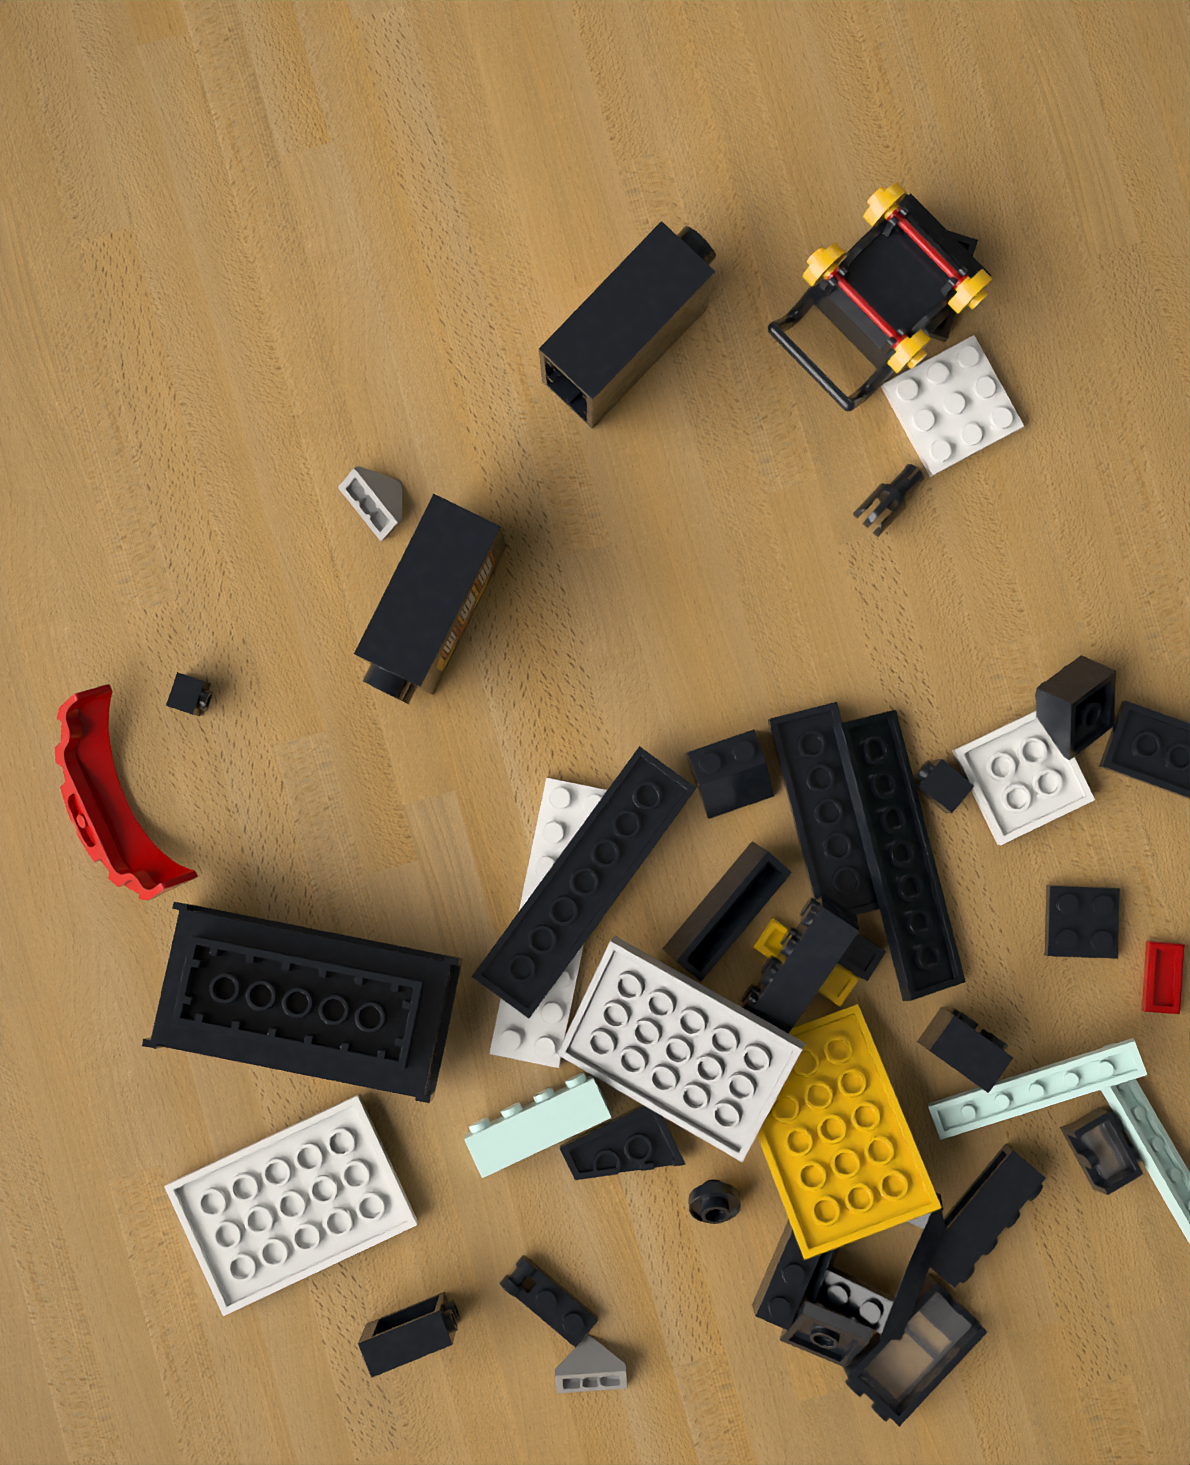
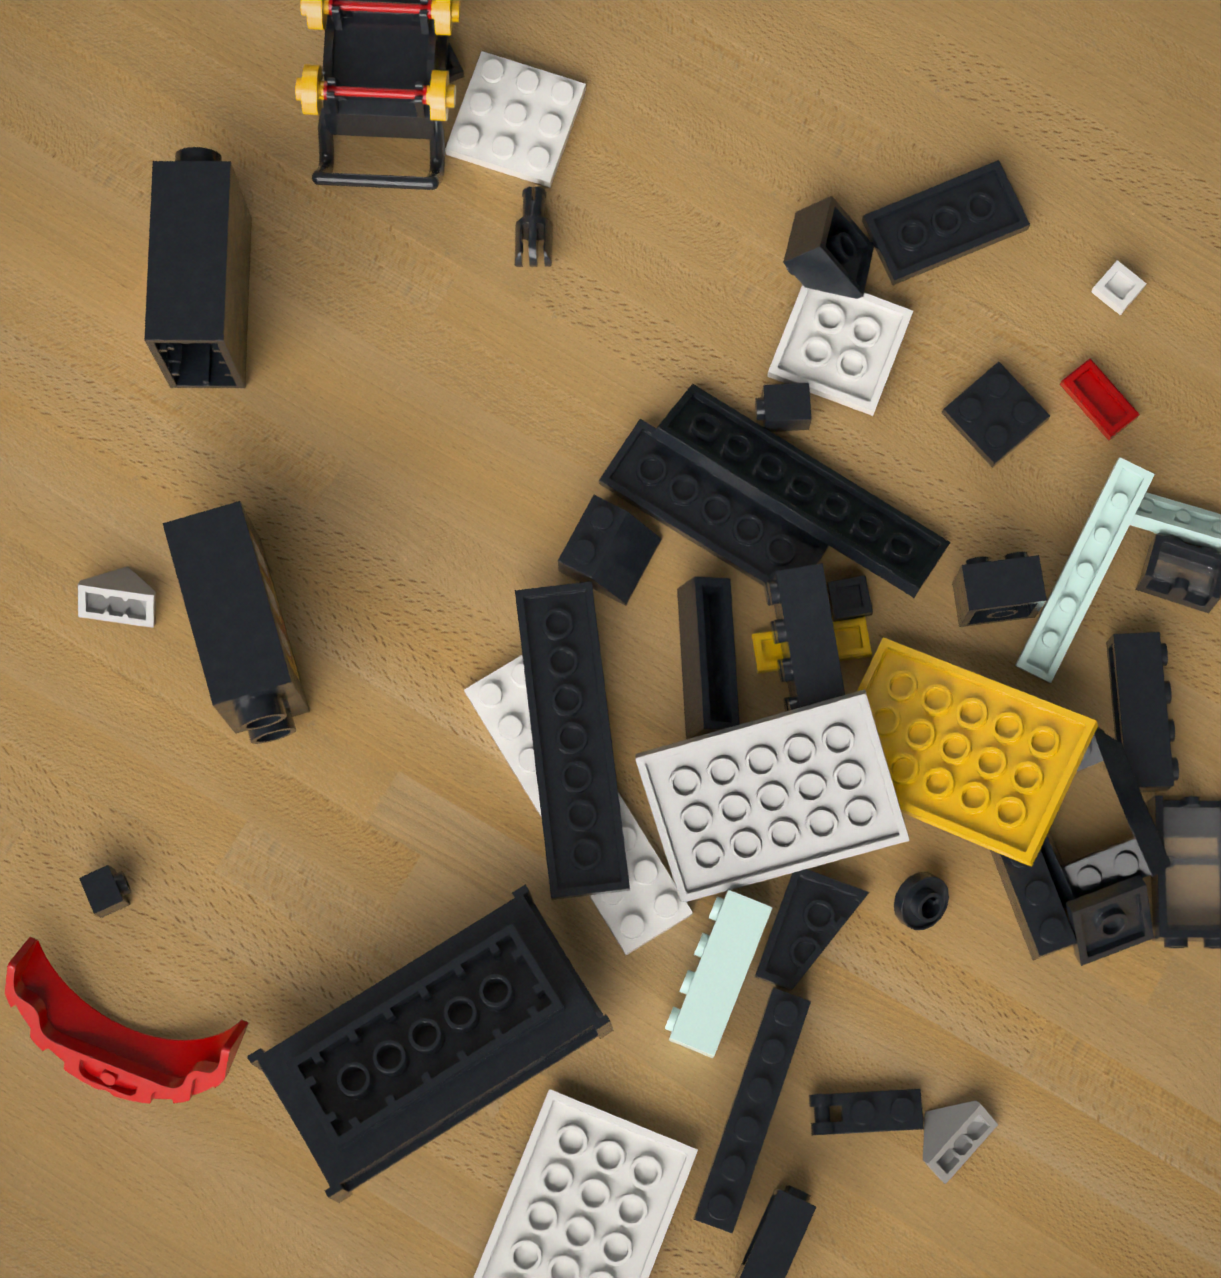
camera: 35 degrees left, 10 degrees down
(474, 1233) = (752, 1110): none -> black brick

